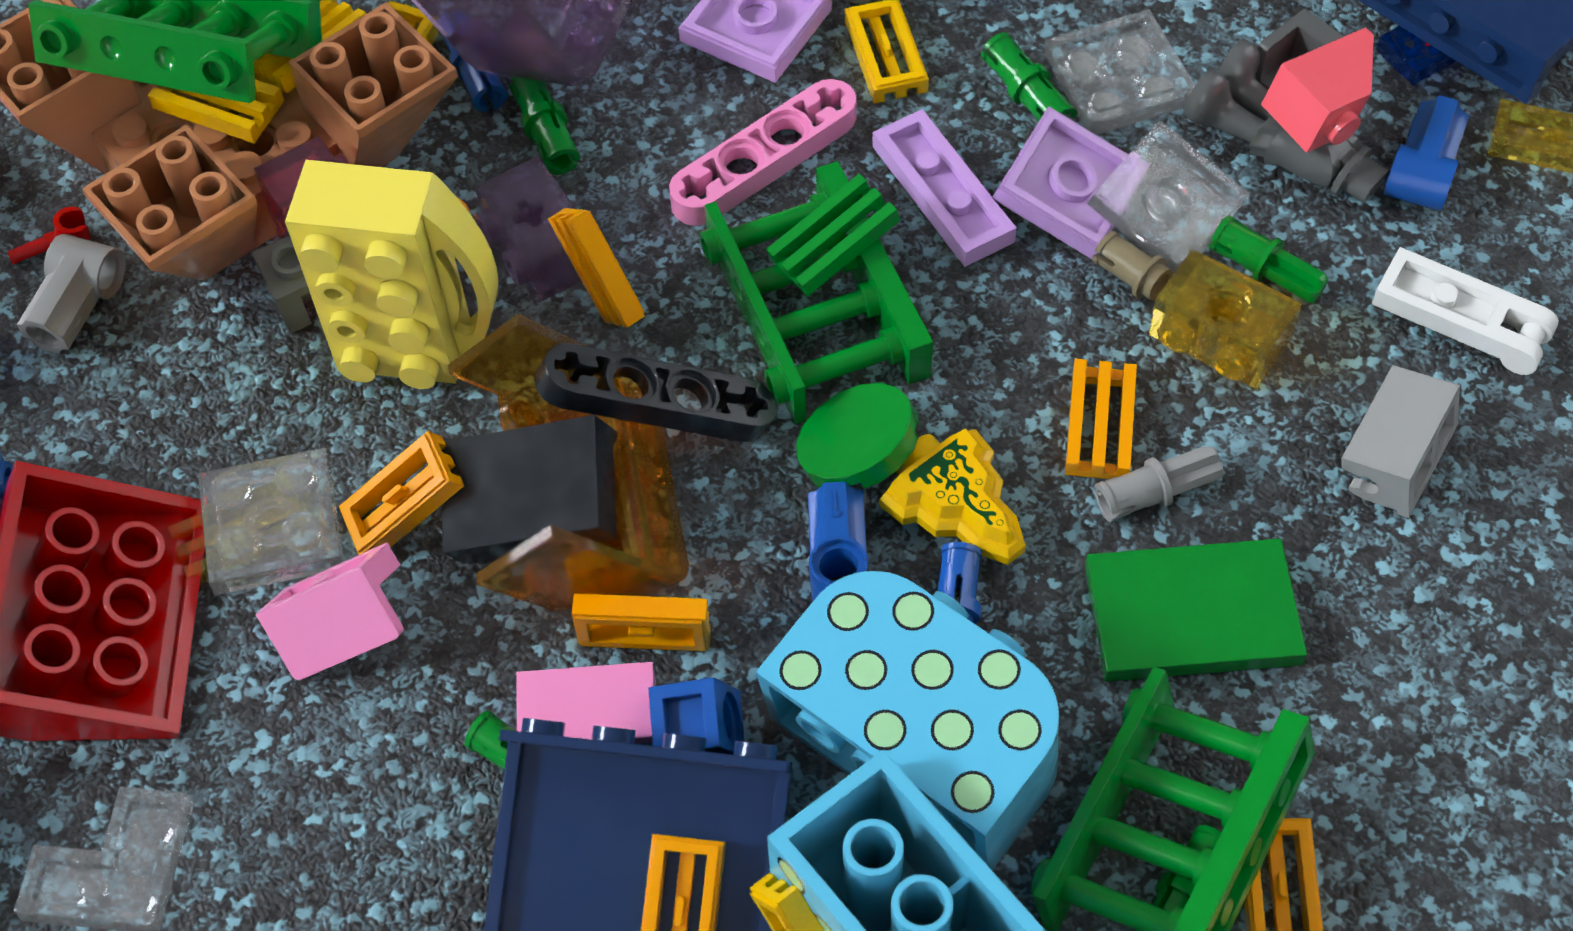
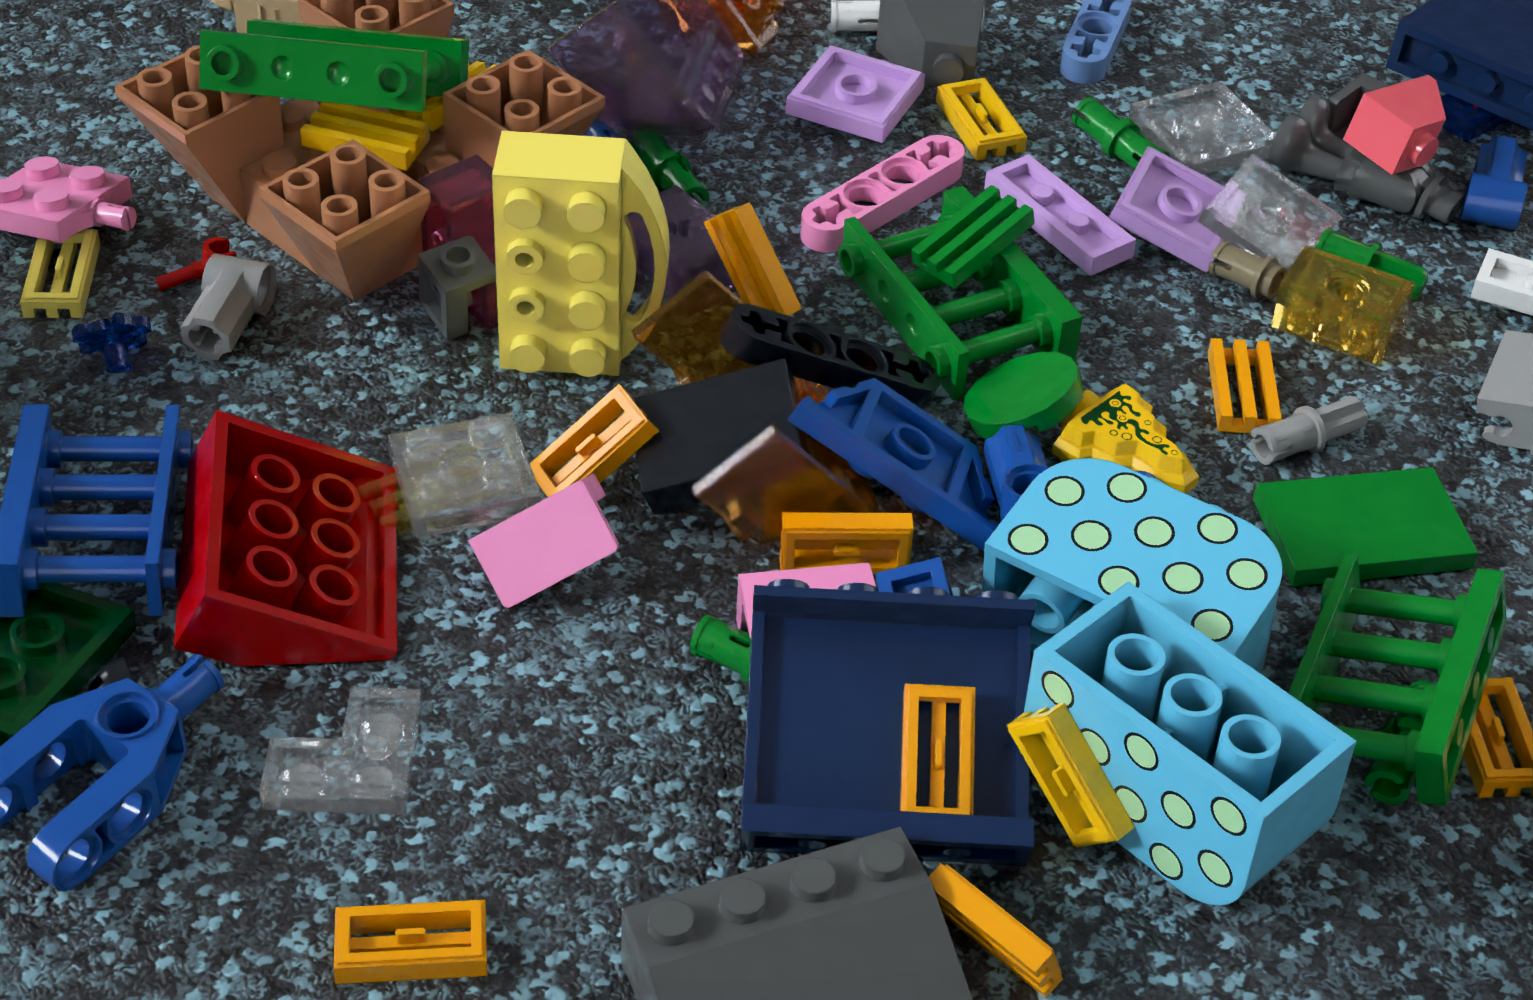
camera: 10 degrees left, 15 degrees down
(716, 515) = (905, 451): none -> blue wing

